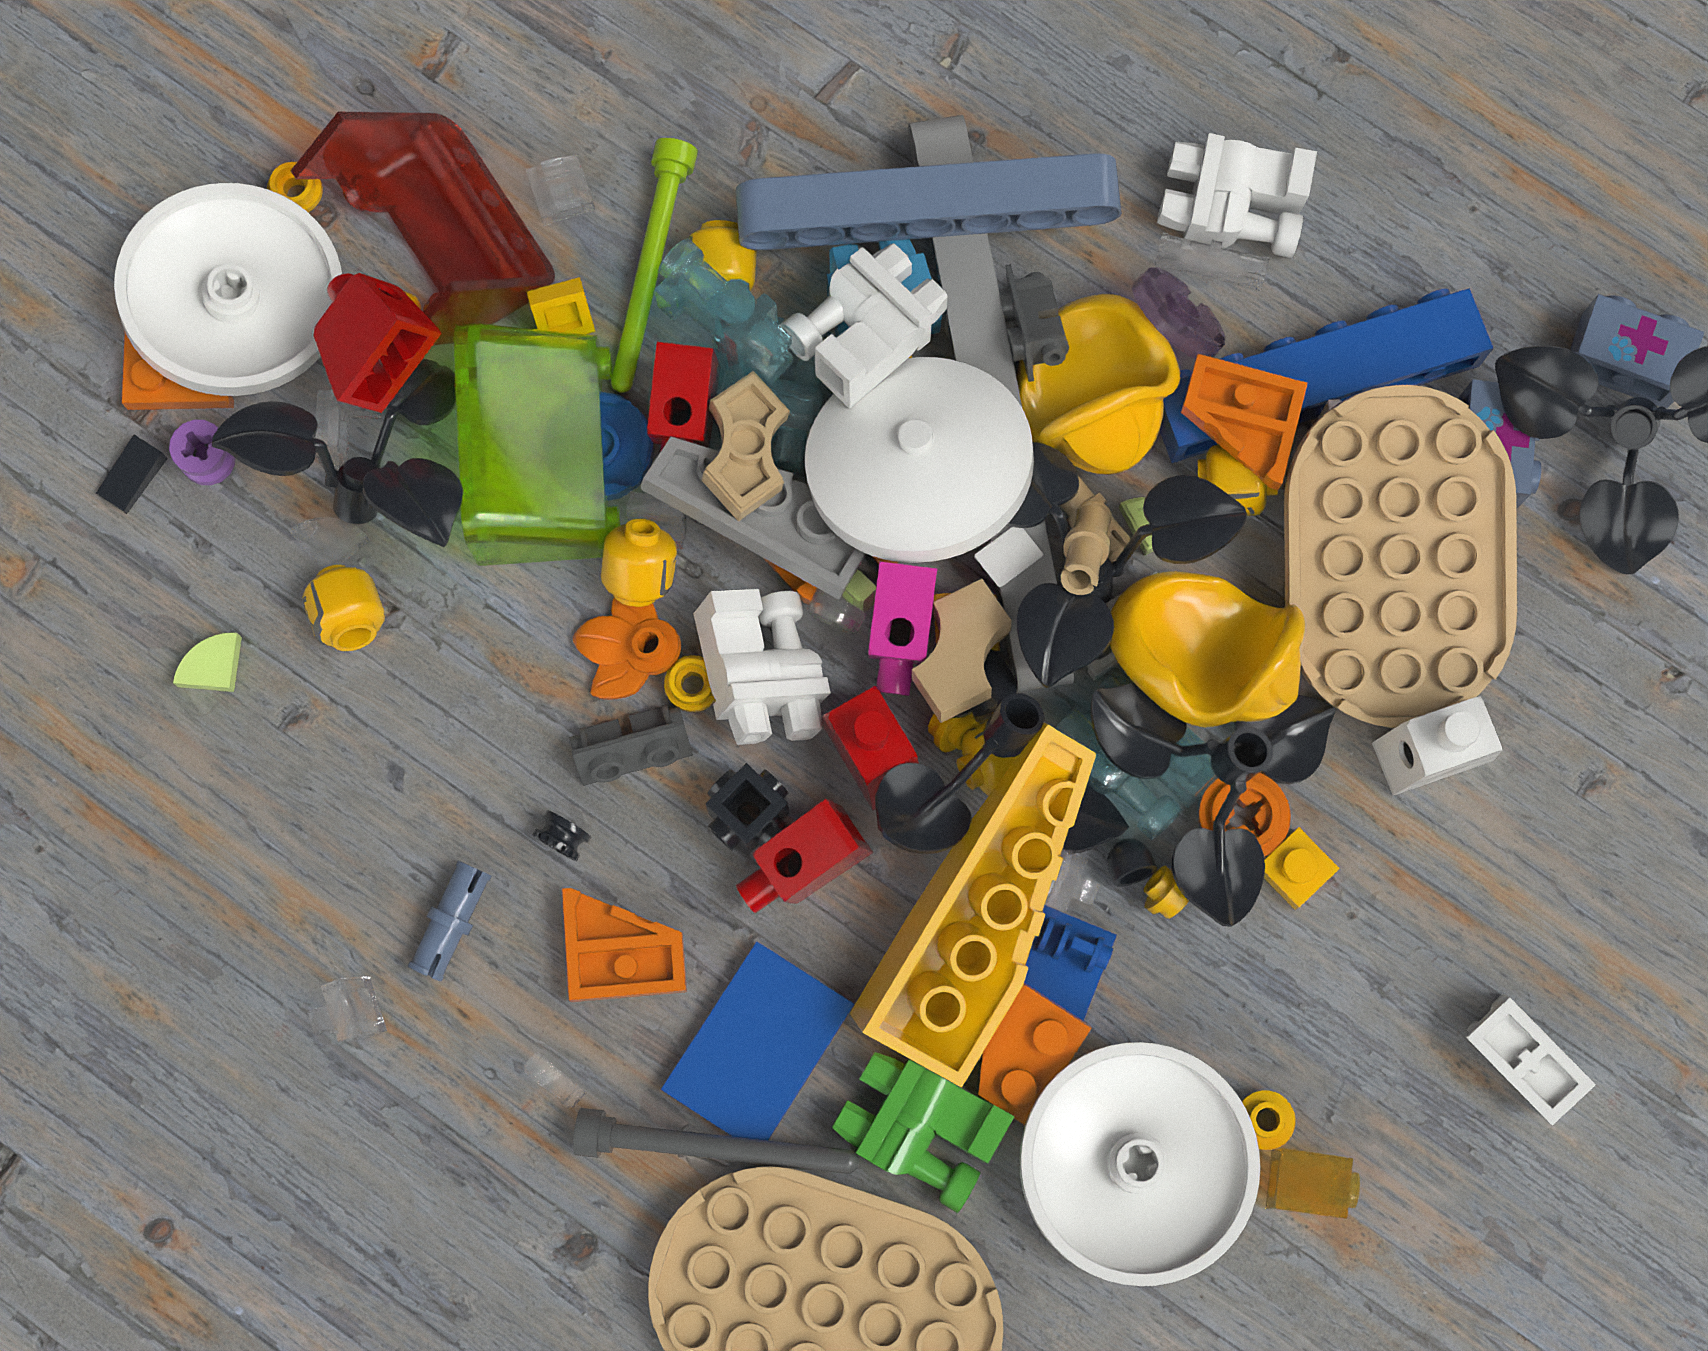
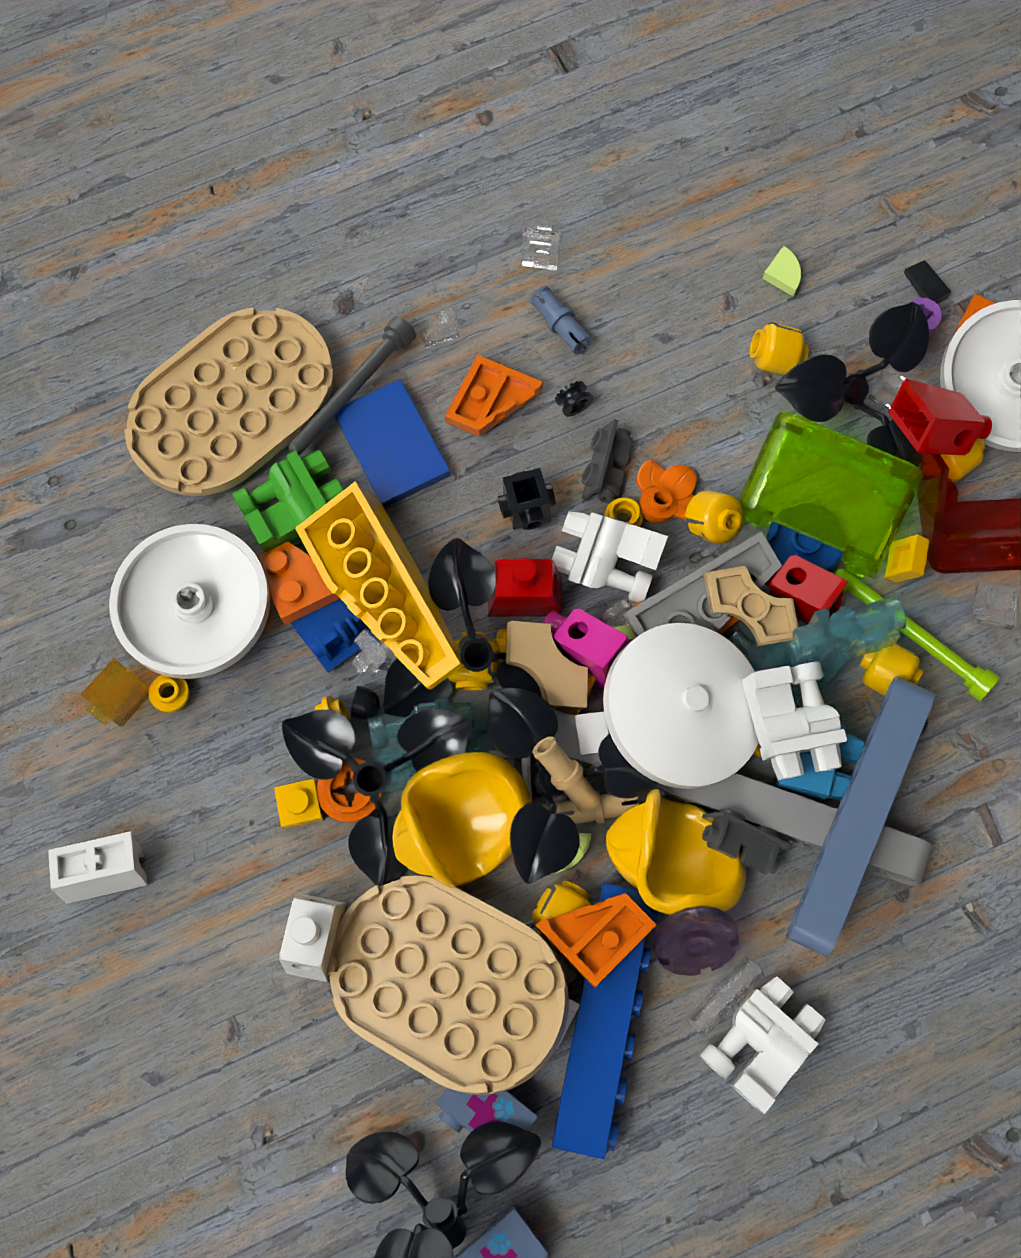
camera: 125 degrees right, 5 degrees down
(827, 846) = (479, 512): red torso -> none

